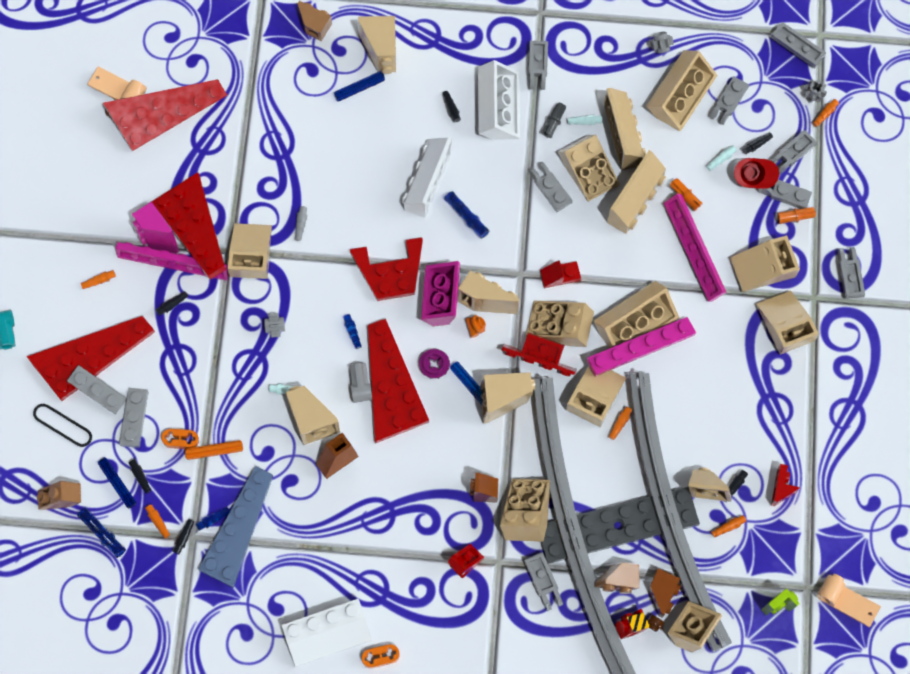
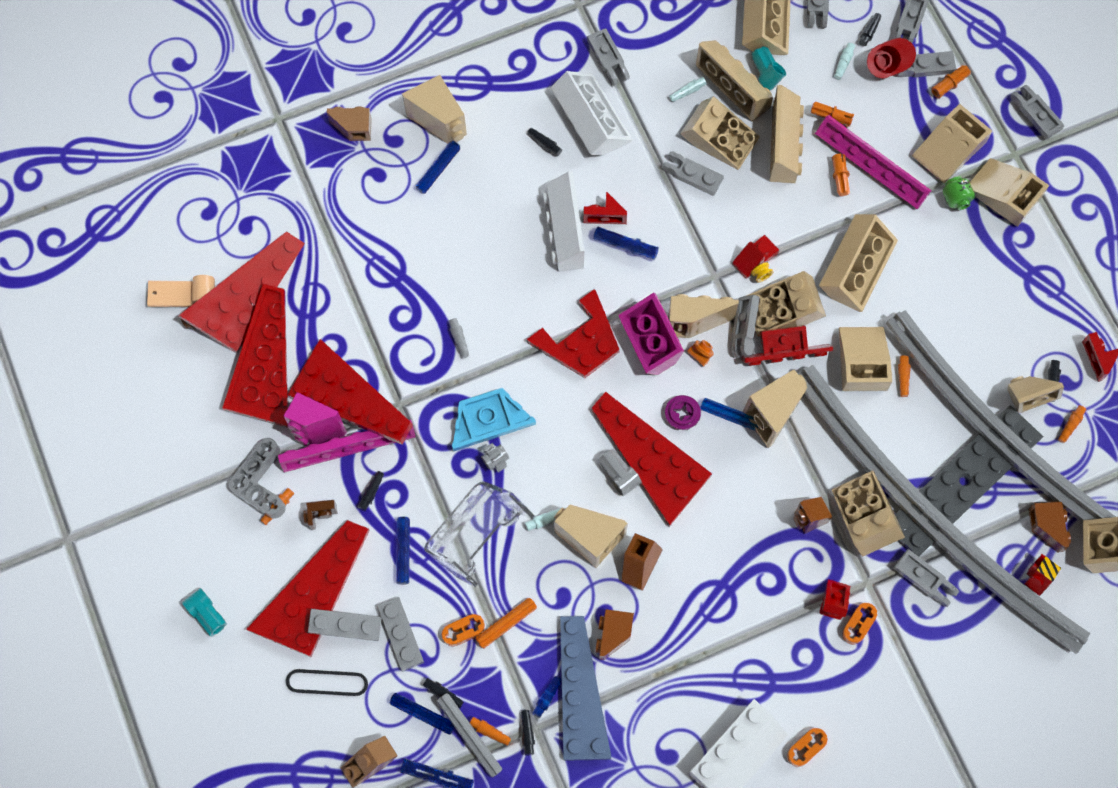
camera: 25 degrees left, 0 degrees up
(87, 254) = (251, 485): none -> light grey beam
(126, 297) = (322, 509): none -> reddish brown bracket
(140, 515) = (469, 735): none -> light grey axle
(141, 175) = (260, 374): none -> red wing
(170, 358) = (403, 550): none -> clear blue axle
(226, 368) = (471, 527): none -> clear windscreen
(250, 251) = (424, 393): tan slope -> none
(287, 293) = (488, 418): none -> medium azure wing
(288, 498) = (616, 632): none -> dark orange slope
(351, 329) = (574, 418): clear blue animal -> none
(466, 186) = (610, 214): none -> red slope
(476, 592) = (864, 626): none -> orange beam
(518, 322) = (745, 326): none -> light grey hinge
(554, 120) = (657, 104): dark grey axle -> none
(557, 289) = (762, 272): none -> yellow bush
(620, 577) = (1002, 532): slope -> none
(641, 346) = (880, 288): dark pink plate -> none
(655, 623) = (1062, 560): reddish brown plate -> none
(656, 137) = (770, 71): none -> teal piece
(664, 245) = (841, 174): none -> orange axle
(747, 304) = (958, 193): none -> bright green head

